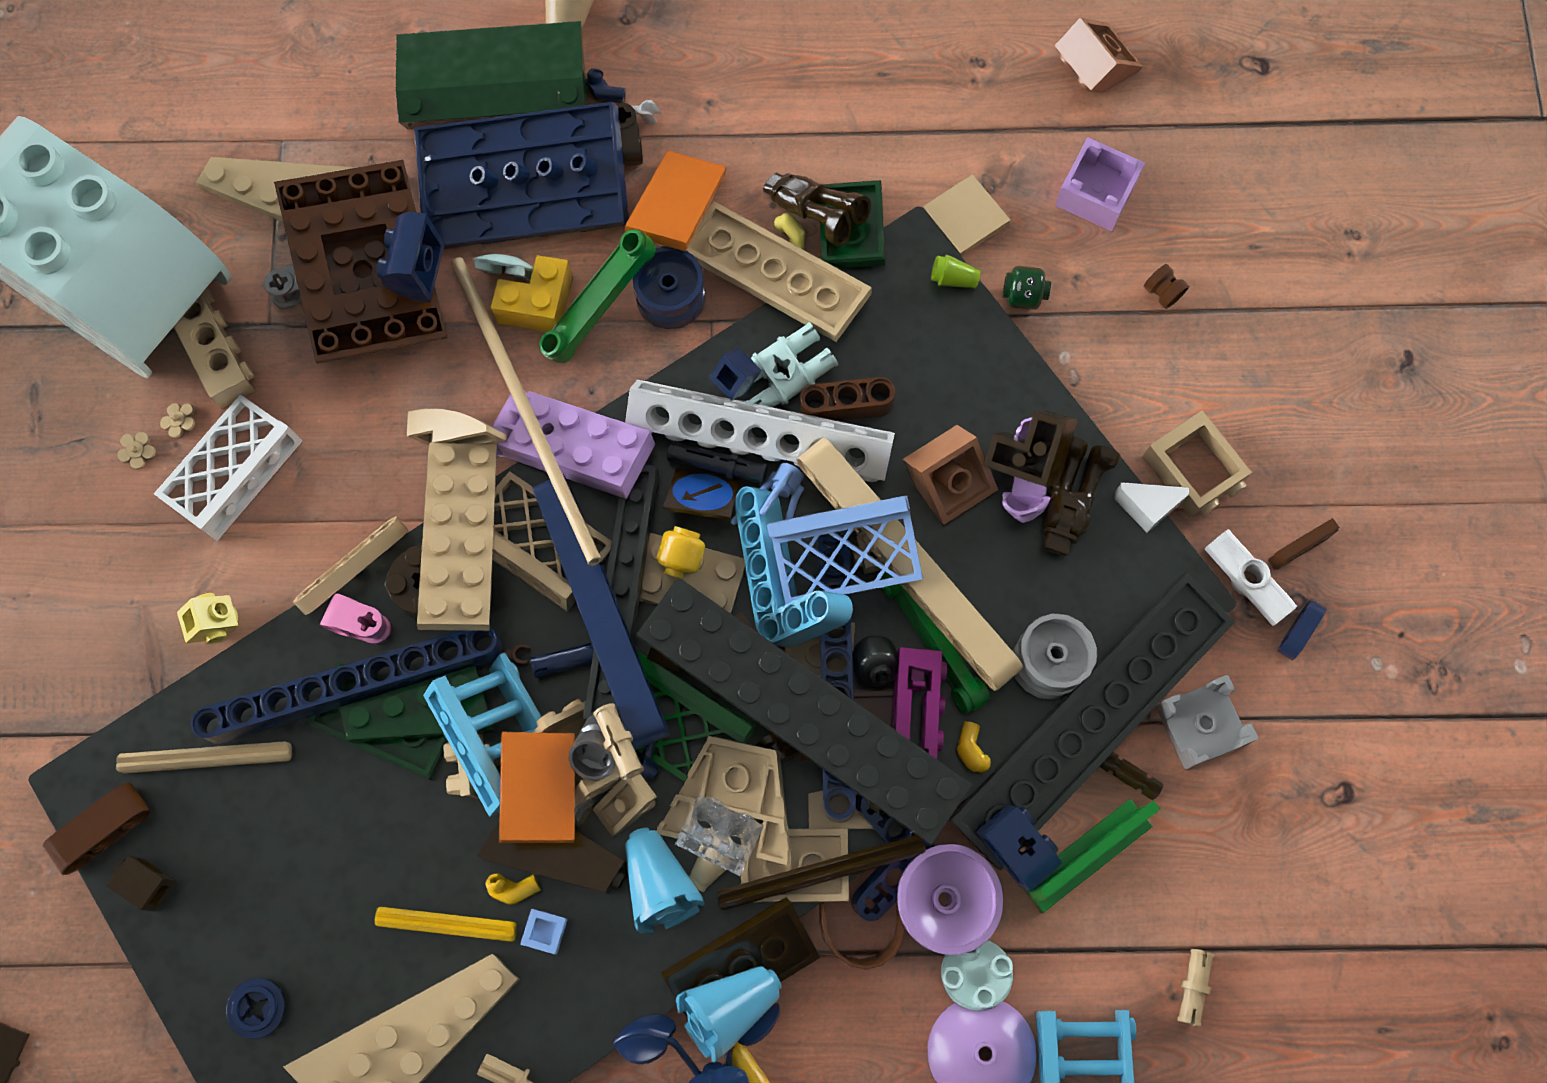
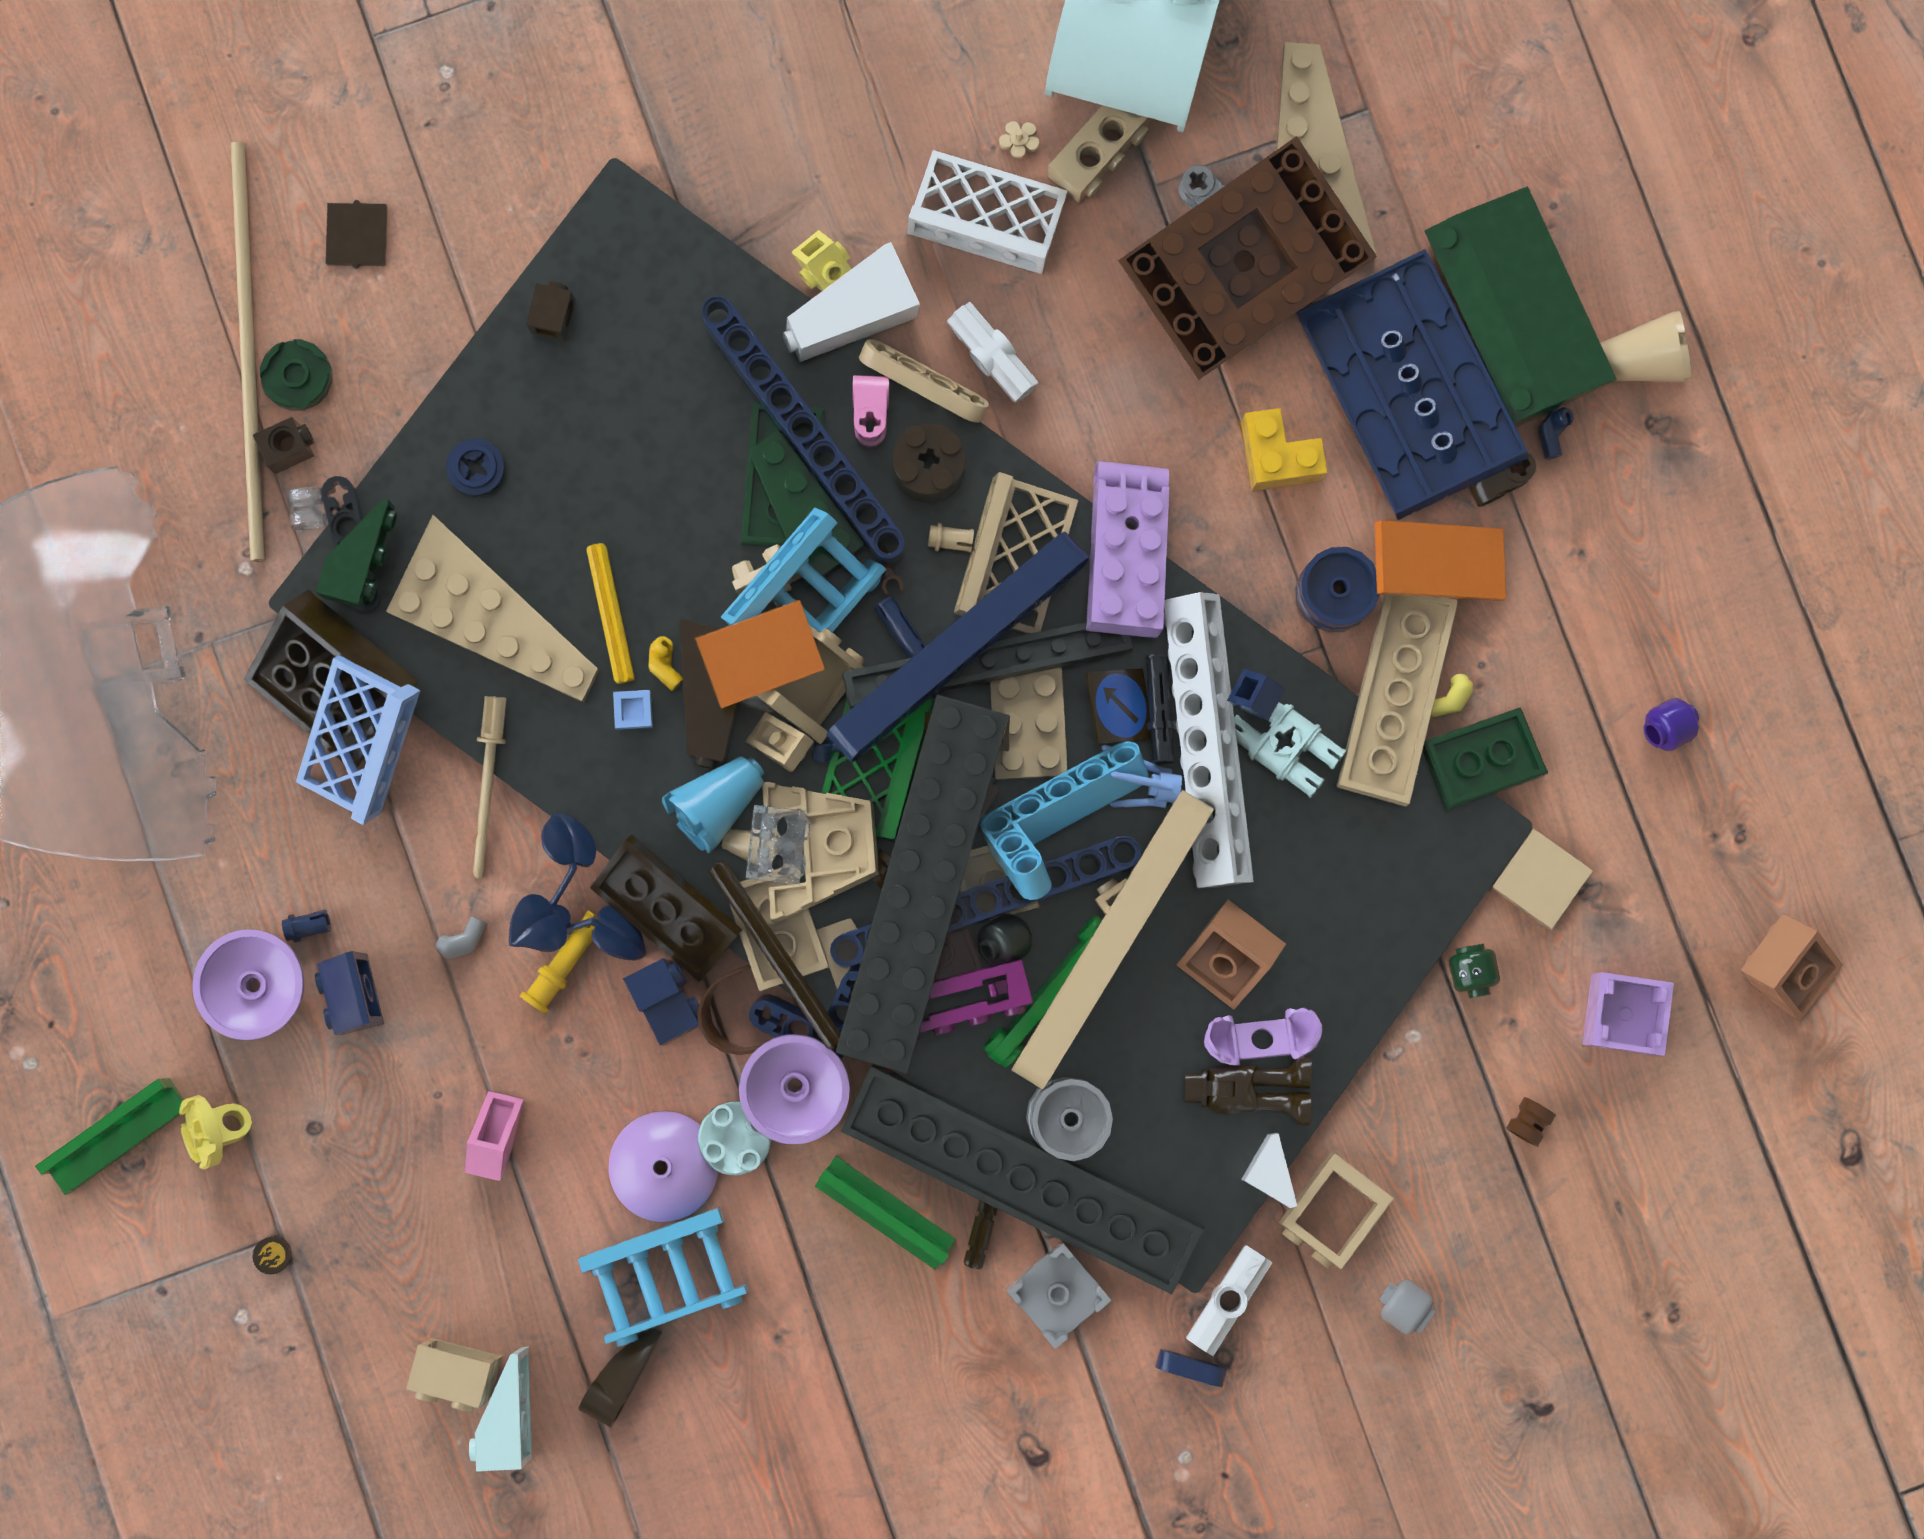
camera: 65 degrees right, 10 degrees up
(96, 828) = (587, 247): reddish brown beam -> none
(136, 449) = (973, 110): tan plant -> none
(204, 757) = (688, 318): tan axle -> none
(259, 604) = (855, 306): none -> white slope
(351, 501) = (992, 352): none -> white piece
(411, 257) = (1262, 313): dark blue brick -> none
(450, 427) = (1099, 425): tan slope -> none
(458, 537) = (985, 478): tan plate -> none
(495, 262) = (1303, 415): light aqua dish -> none
(501, 588) = (950, 538): none -> tan pin
(527, 414) = (1142, 493): tan piece -> none
(588, 753) = (818, 696): flat silver wheel -> none
(597, 296) = (1296, 519): green piece -> none
(618, 741) = (825, 716): tan pin -> none
(647, 110) = (1541, 485): white hand -> none
(680, 552) = (1046, 706): yellow head -> none
(727, 1008) = (619, 909): medium azure cone -> none
(805, 196) = (1497, 693): dark brown piece -> none
(828, 996) = (663, 1000): none -> dark blue brick
(839, 520) = (1126, 856): light blue fence -> none
(859, 389) = (1276, 802): reddish brown beam -> none
(874, 77) = (1671, 724): none -> dark purple head
(954, 273) = (1461, 886): lime cone -> none
(969, 751) = (947, 1063): yellow arm -> none
(1002, 837) = (871, 1120): dark blue brick -> none
(1040, 454) = (1274, 1036): dark brown brick -> none
(1195, 987) = (792, 1355): tan pin -> none
(1296, 433) = (1406, 1307): none -> light grey head
(1304, 544) = (1284, 1346): reddish brown tile -> none

